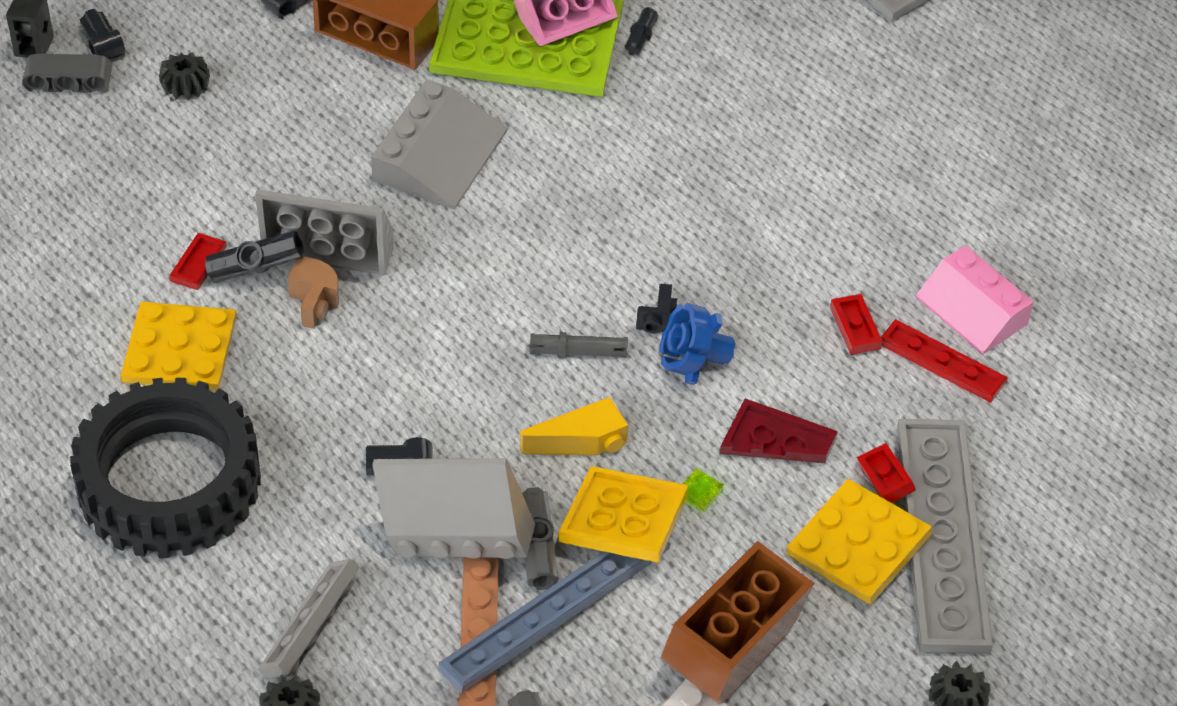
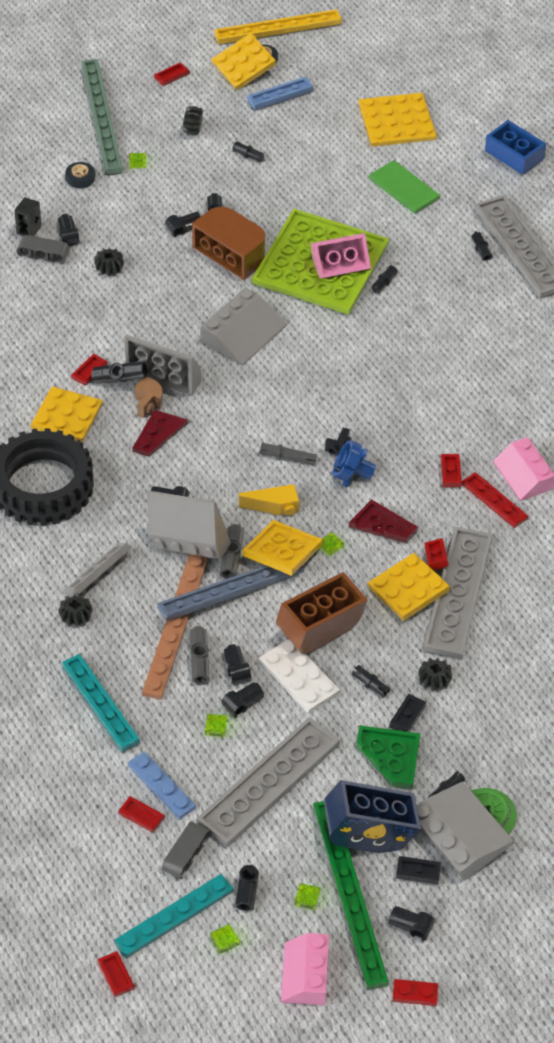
camera: 15 degrees right, 0 degrees up
(344, 348) = (157, 431): none -> dark red wing

